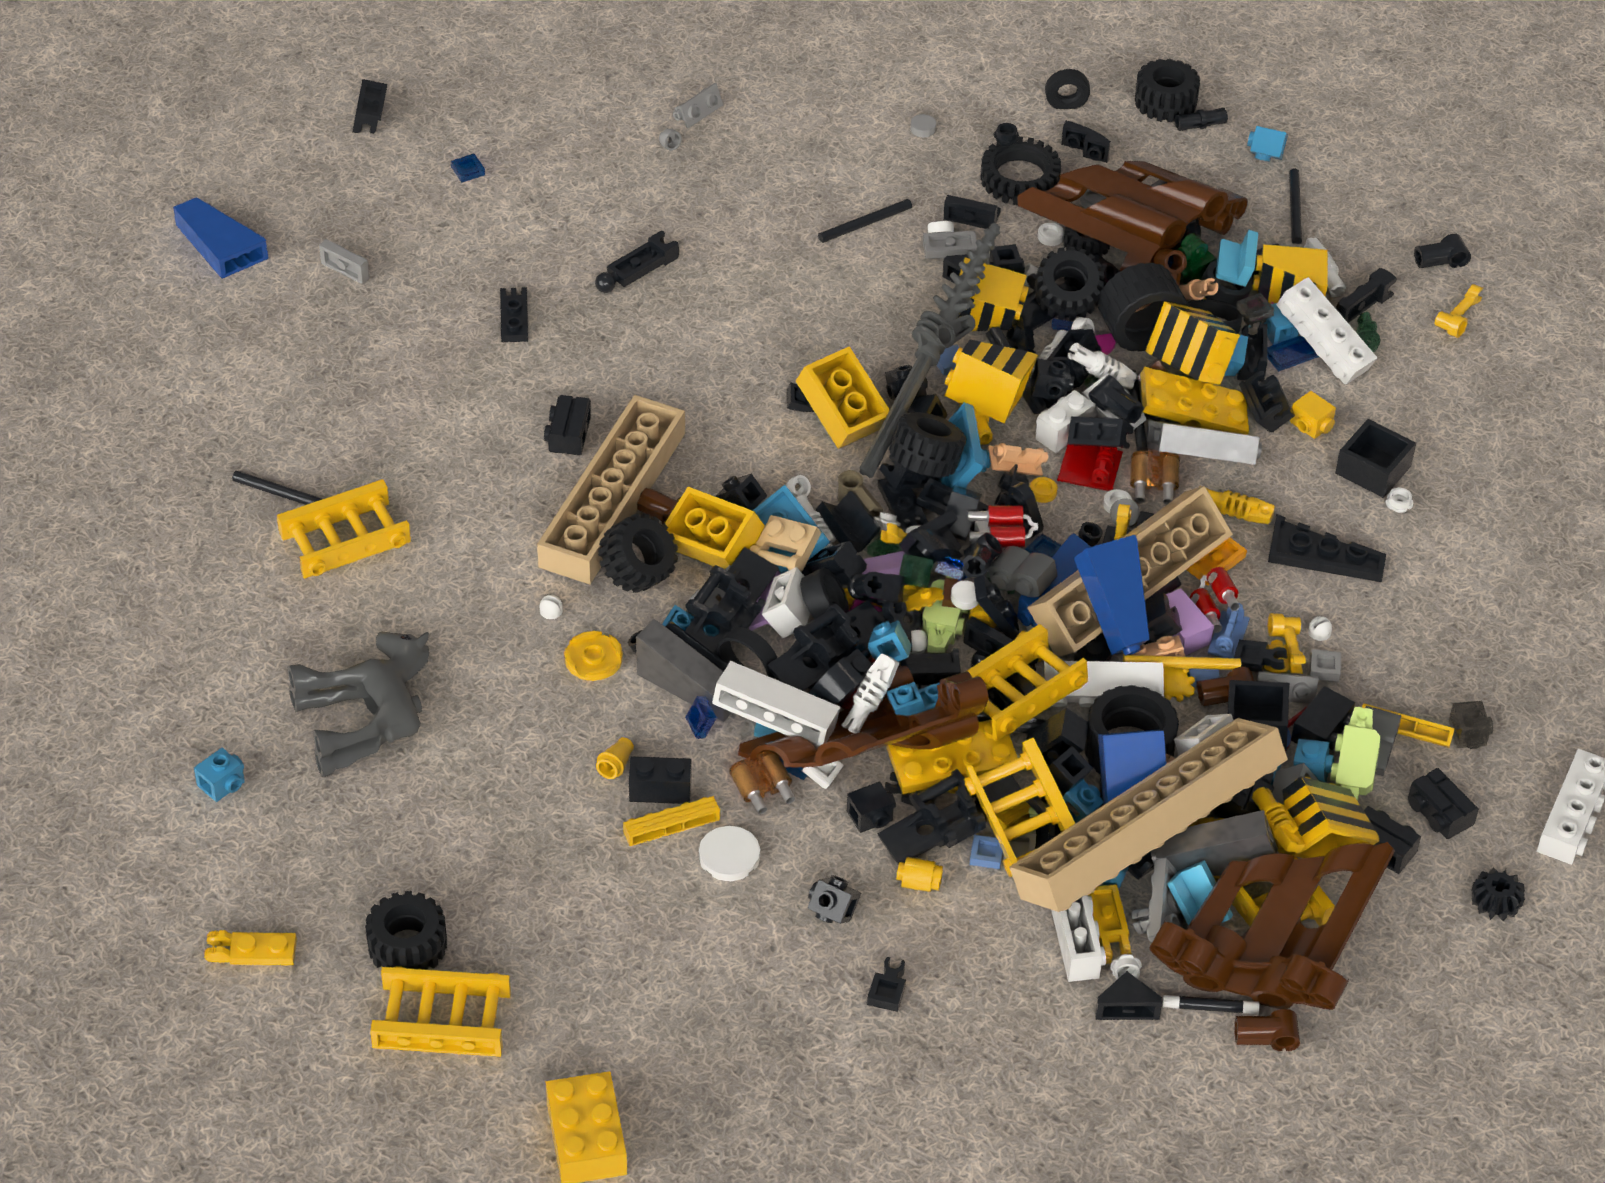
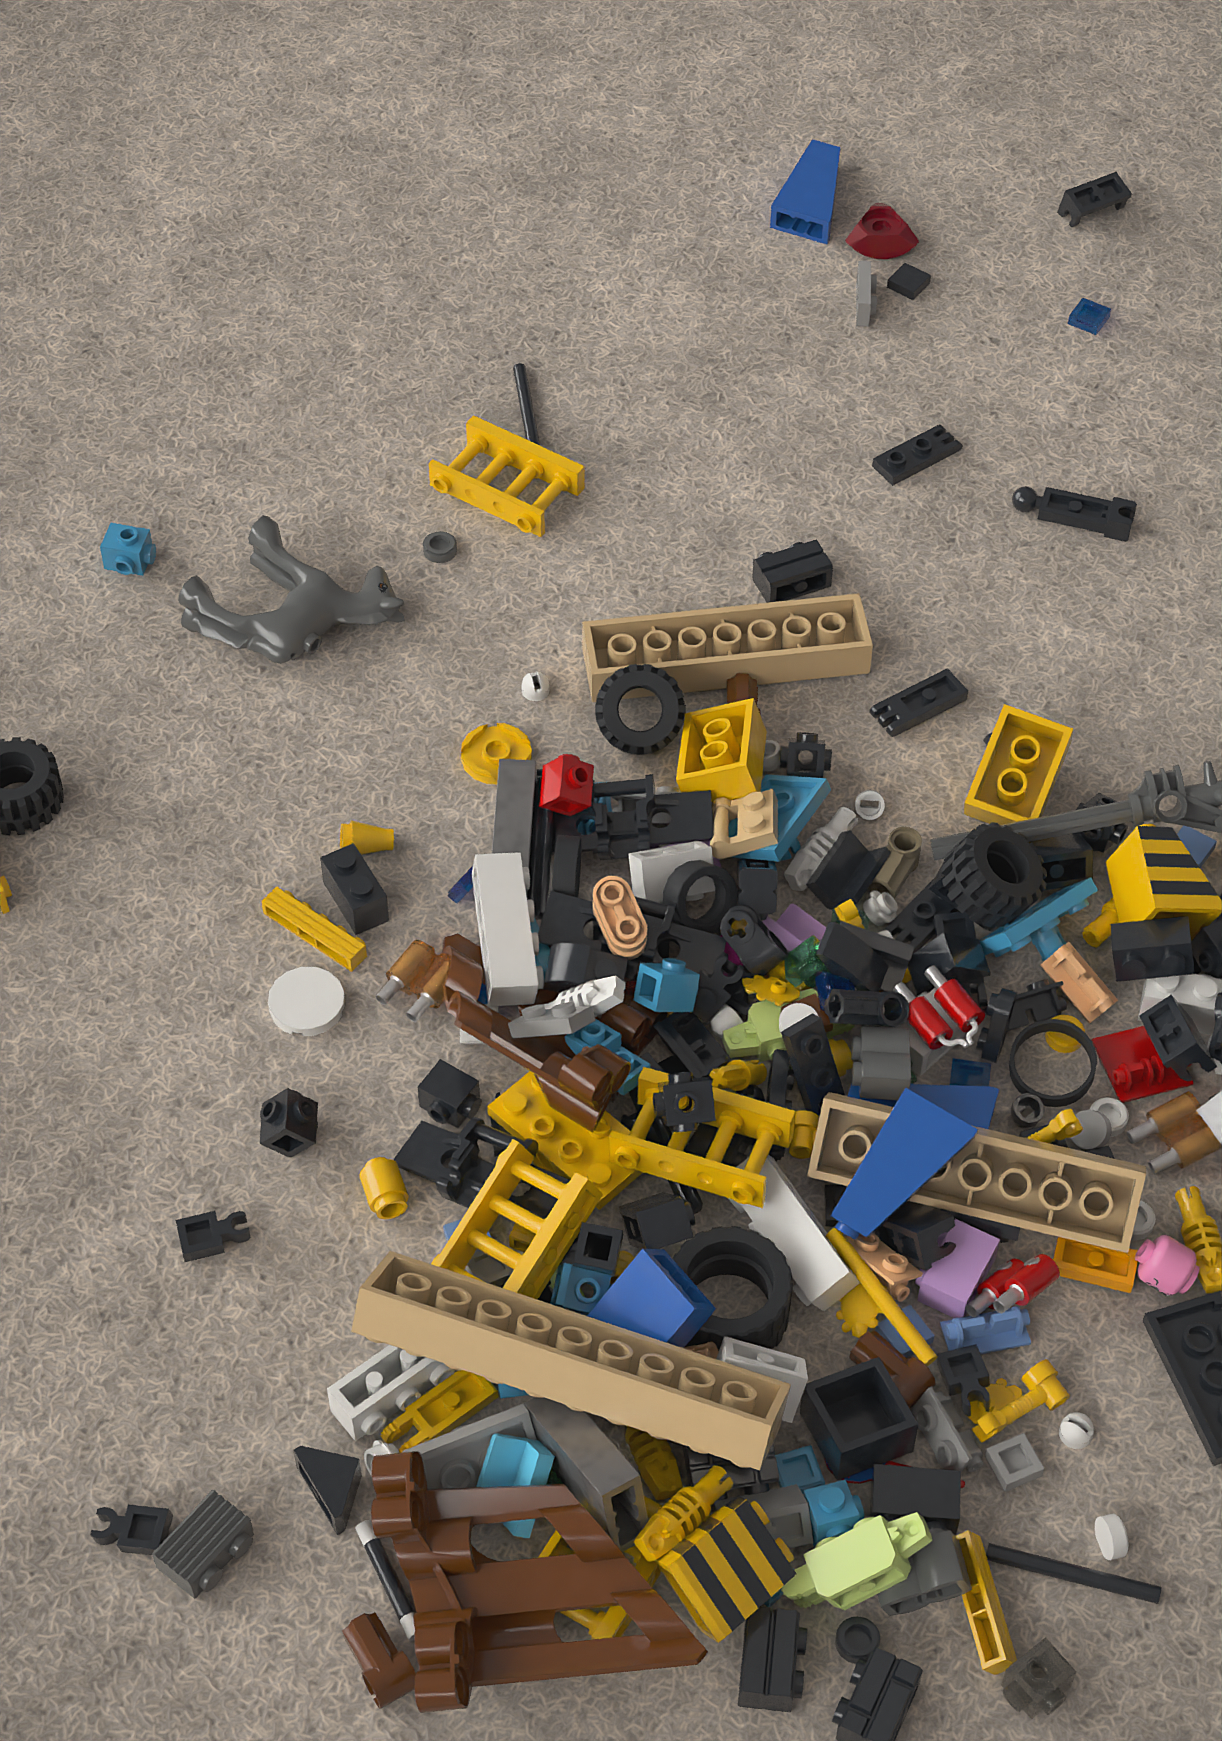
camera: 60 degrees right, 5 degrees up
(291, 223) = (882, 234): none -> dark red hat
(349, 235) = (909, 281): none -> black tile
(373, 599) = (439, 547): none -> dark grey tile
(686, 612) = (566, 785): none -> red brick
(734, 419) = (919, 702): none -> black hinge
(833, 631) = (619, 917): none -> light nougat brick
(879, 710) = (558, 1020): none -> light grey plate
(970, 651) = (739, 1075): none -> yellow axle
(1002, 667) = (697, 1108): none -> black brick
(1035, 405) = (1152, 949): none -> black brick
(1075, 482) = (1064, 1027): none -> black tyre
(1093, 1118) = (138, 1531): none -> black plate
(1129, 1086) = (204, 1544): none -> dark grey brick
(1247, 525) = (1166, 1265): none -> bright pink head
(1392, 796) = (856, 1638): none -> black tile
(1401, 647) = (1111, 1536): none -> white tile
(1412, 676) = (1073, 1573): none -> black bar

